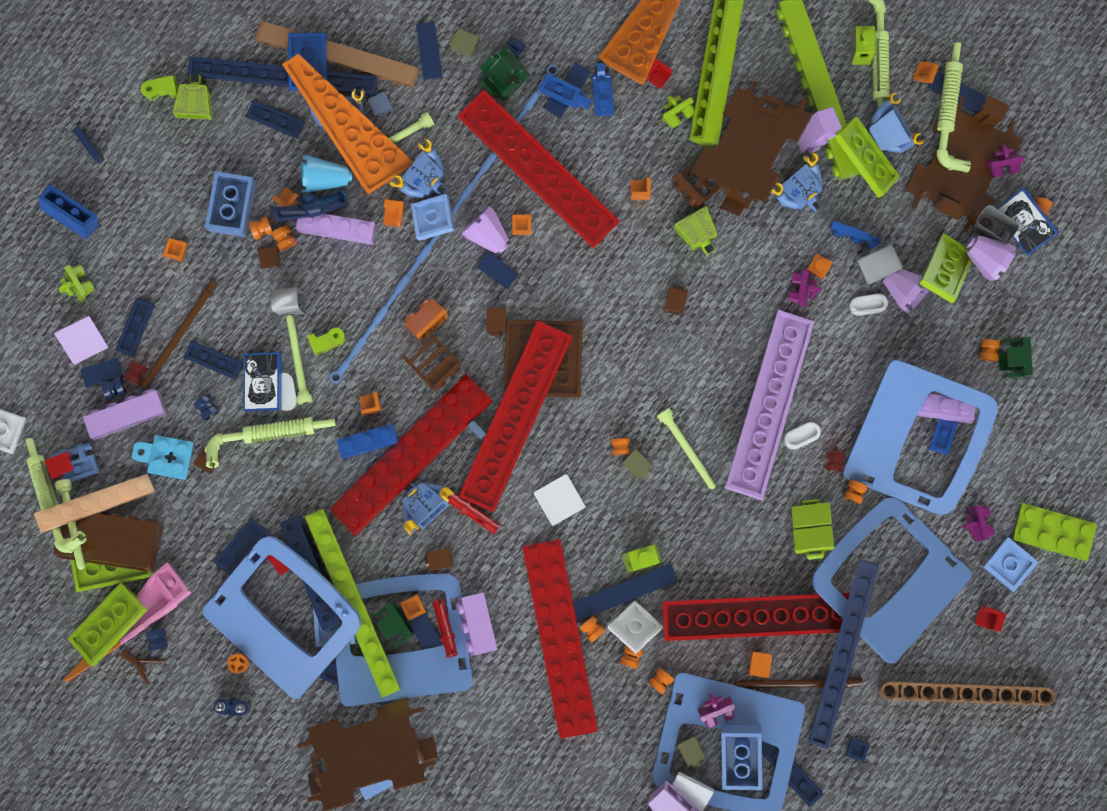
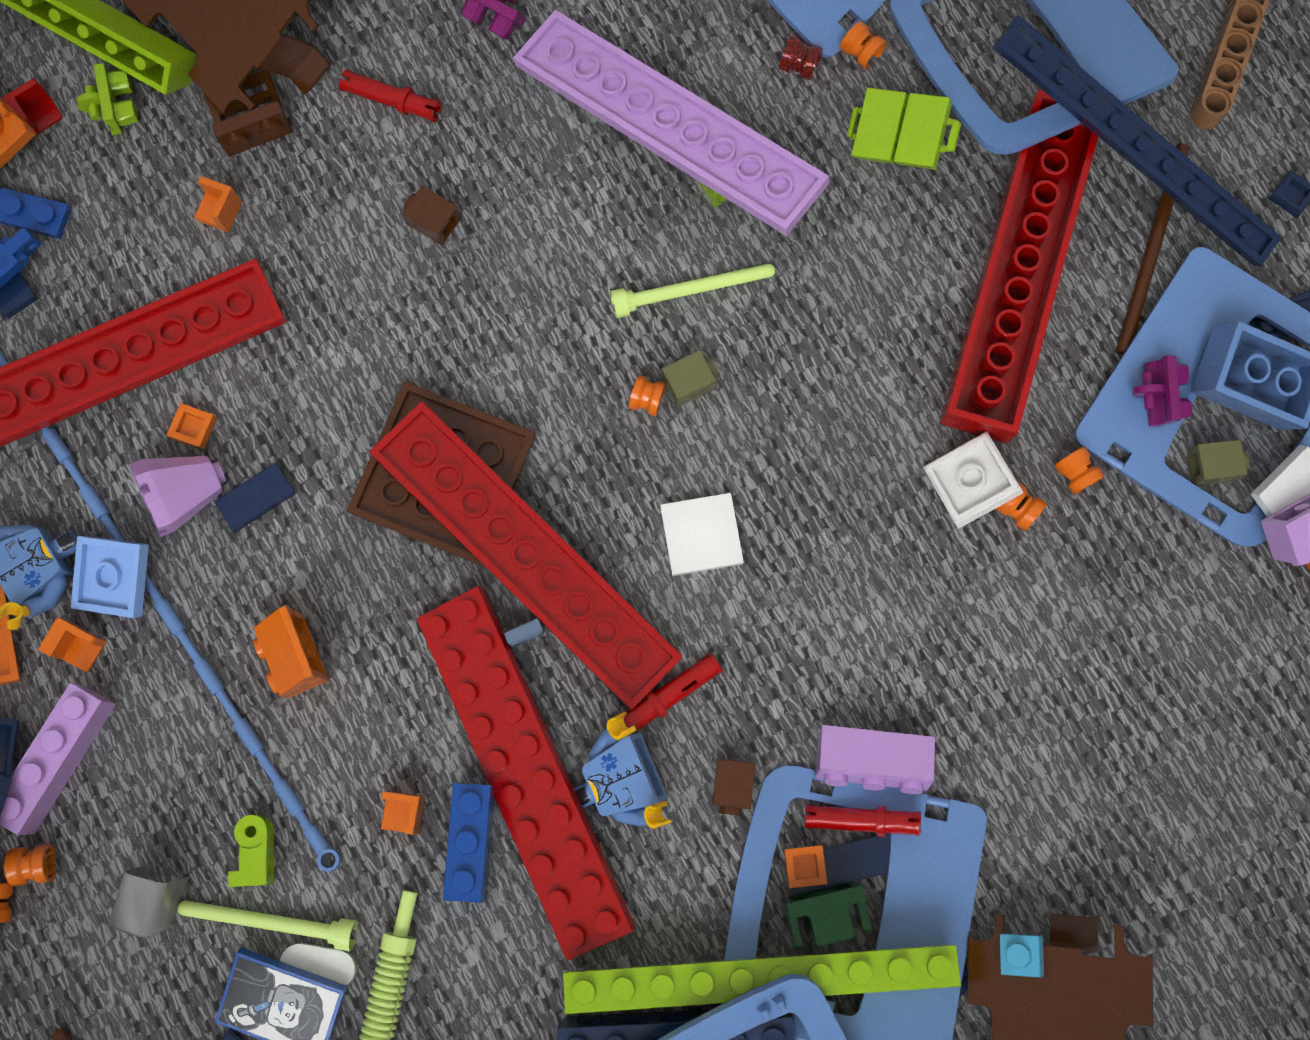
camera: 65 degrees left, 5 degrees down
(268, 257) = (56, 908): reddish brown tile -> none
(406, 723) = (1021, 955): none -> medium azure plate
(444, 369) = (391, 650): reddish brown plate -> none
(496, 321) = (343, 530): reddish brown brick -> none
(560, 639) = (949, 619): red plate -> none
(593, 630) = (951, 555): orange wheel -> none
(624, 592) = (902, 489): dark blue tile -> none
(642, 558) = (855, 425): lime torso -> none
(698, 230) = (327, 138): lime torso -> none
(734, 254) = (402, 99): none -> red pin
(759, 664) = (1104, 296): orange panel -> none
(802, 435) = (738, 94): white tile -> none

